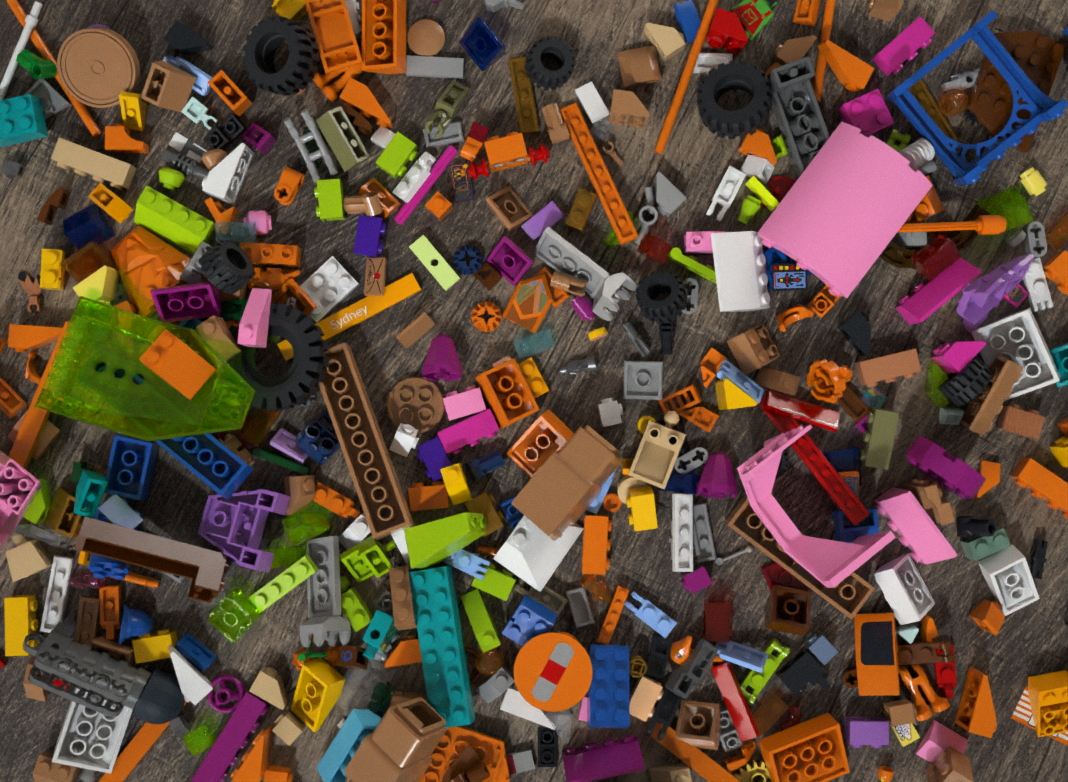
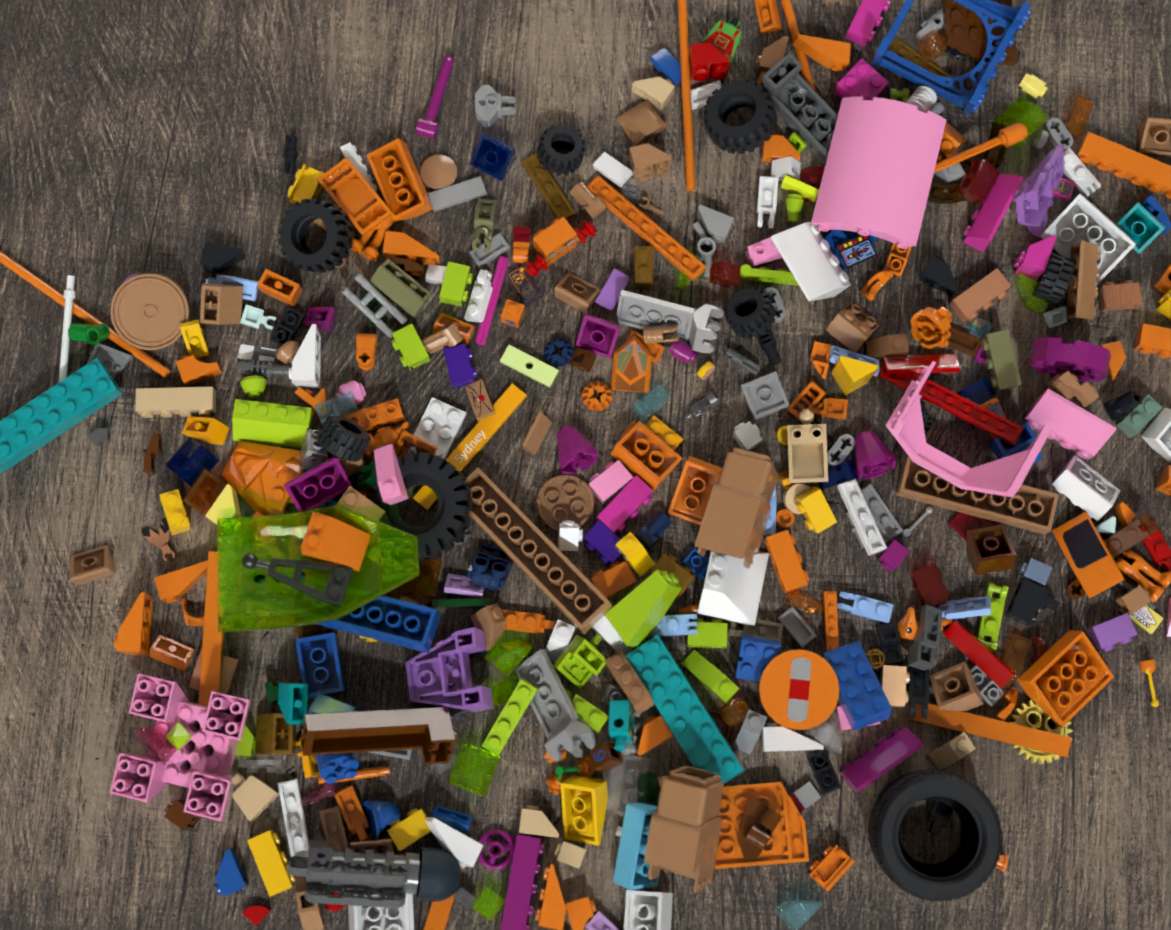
camera: 25 degrees left, 10 degrees down
(160, 408) = (335, 587): none -> pearl dark grey plate

